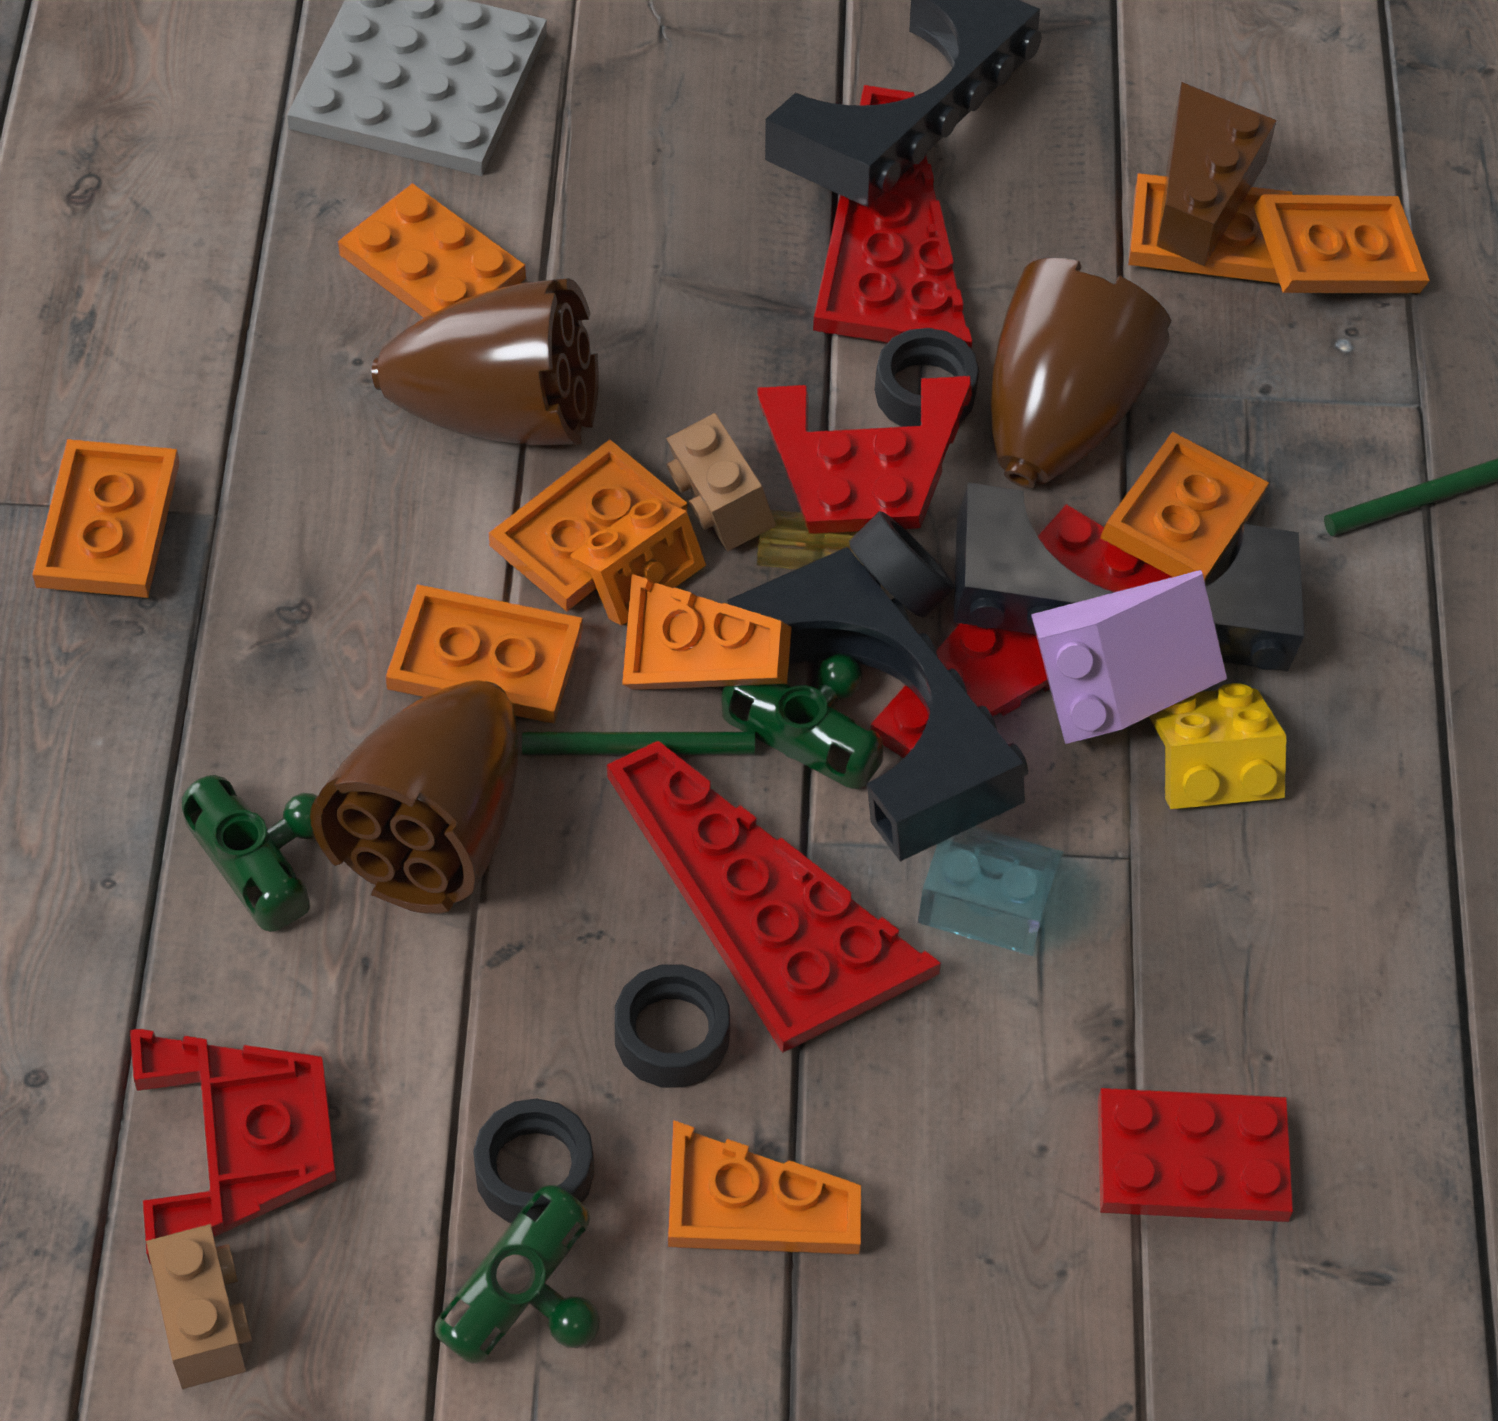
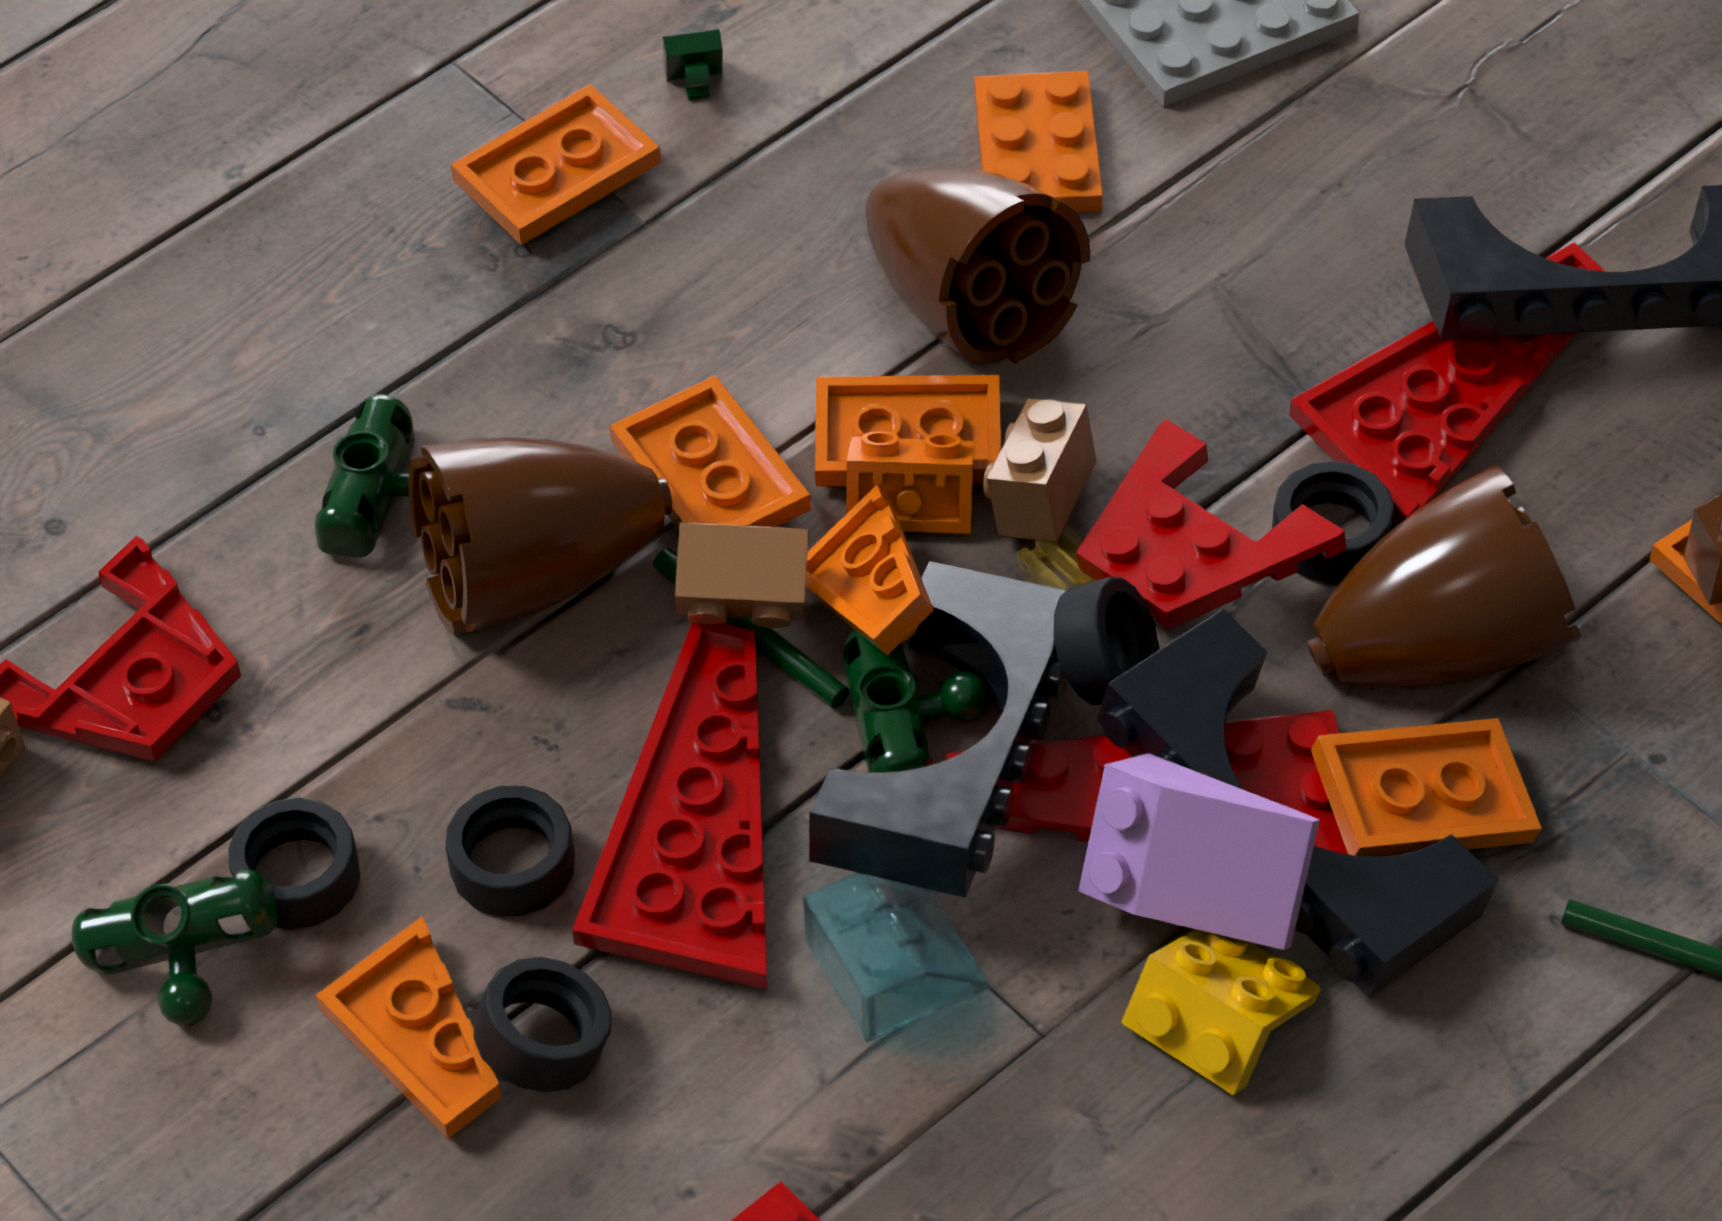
camera: 50 degrees right, 5 degrees down
(123, 369) = (694, 59): none -> dark green tile
(620, 705) = (741, 573): none -> medium nougat brick
(837, 1153) = (519, 1057): none -> black tyre

